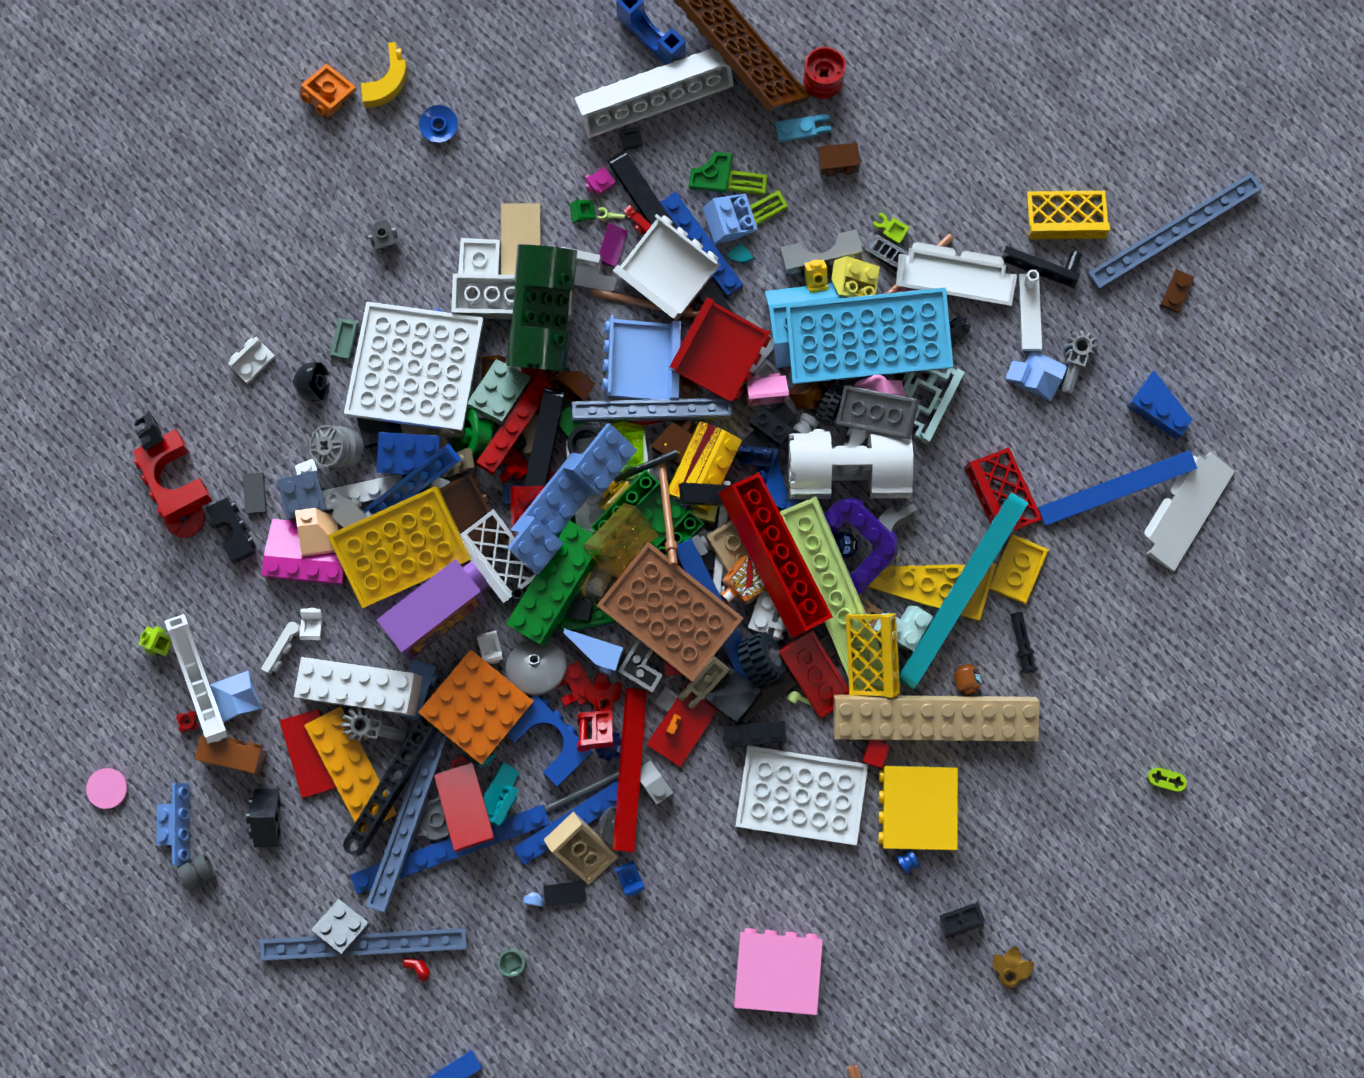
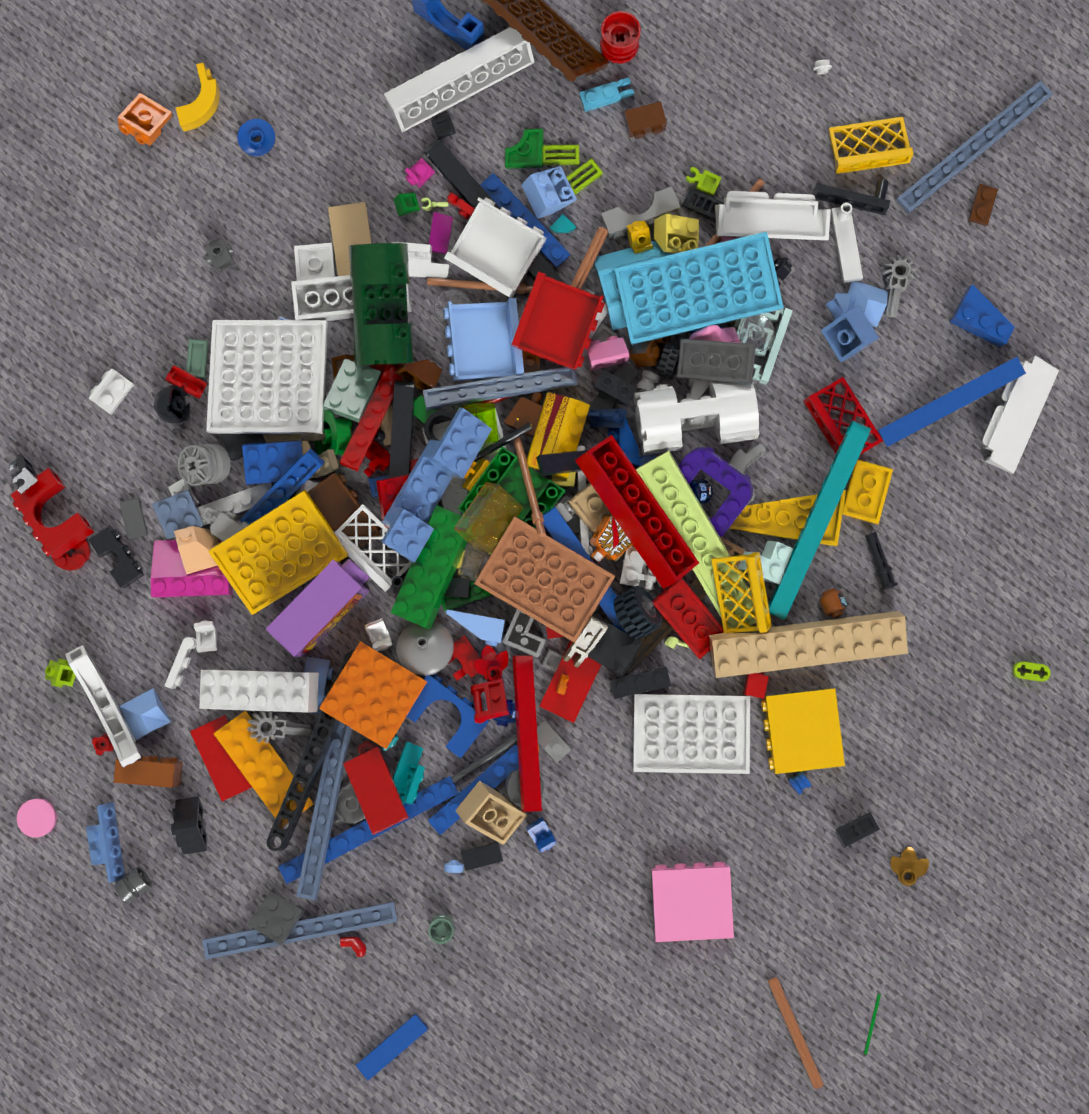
camera: 10 degrees left, 5 degrees up
(334, 363) = (188, 381): none -> red hinge
(762, 291) = (590, 258): none -> nougat axle
(931, 387) = (763, 328): none -> clear dish
(1019, 401) = (848, 332): none -> medium blue brick
(1028, 129) = (822, 66): none -> white plate

